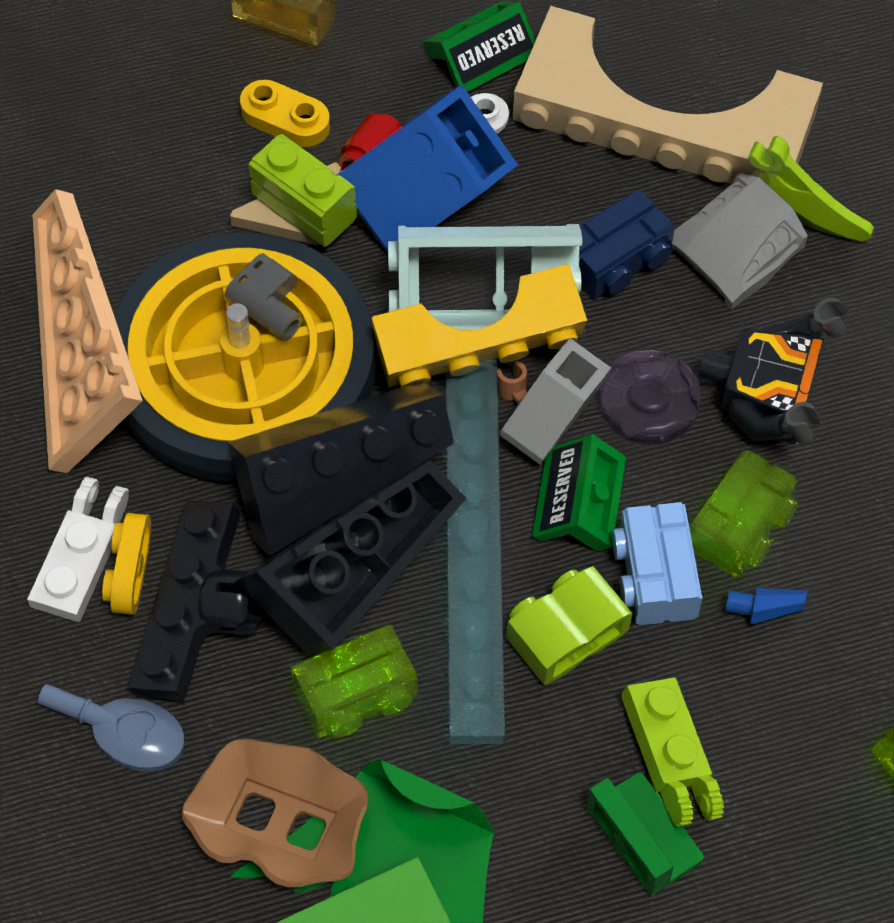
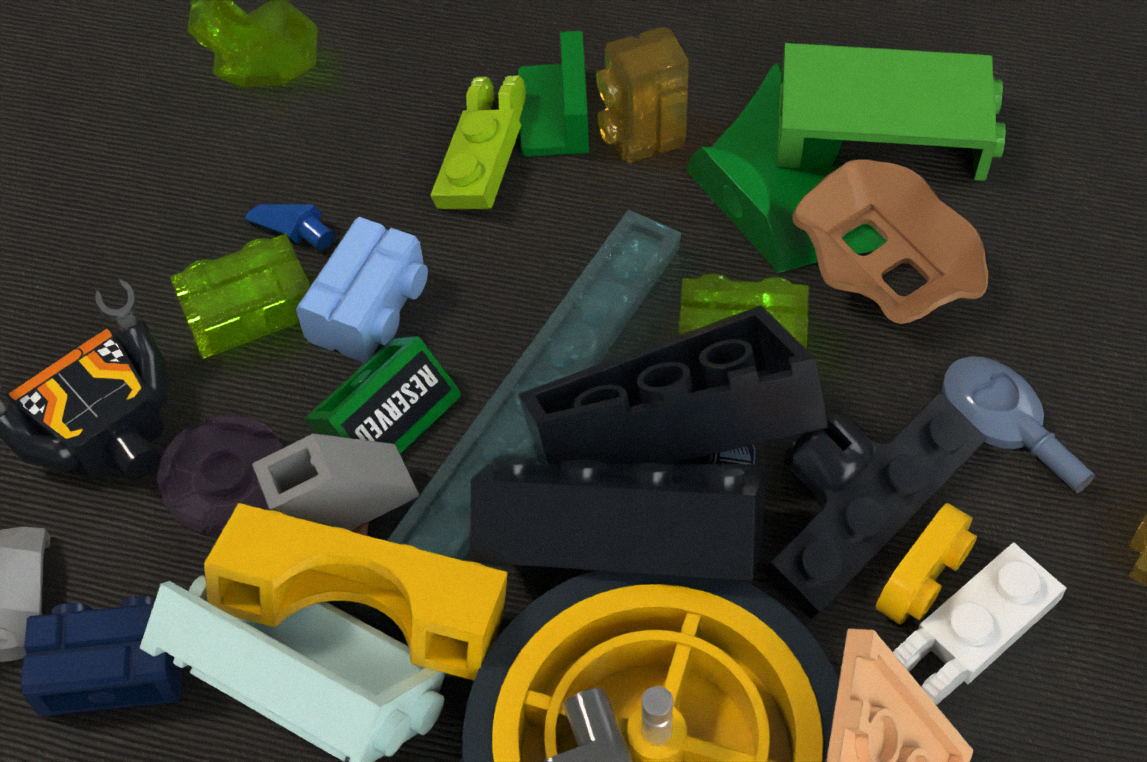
camera: 145 degrees left, 5 degrees down
(554, 833) = (644, 94): none -> clear yellow brick
(567, 624) = (493, 278): lime brick -> none

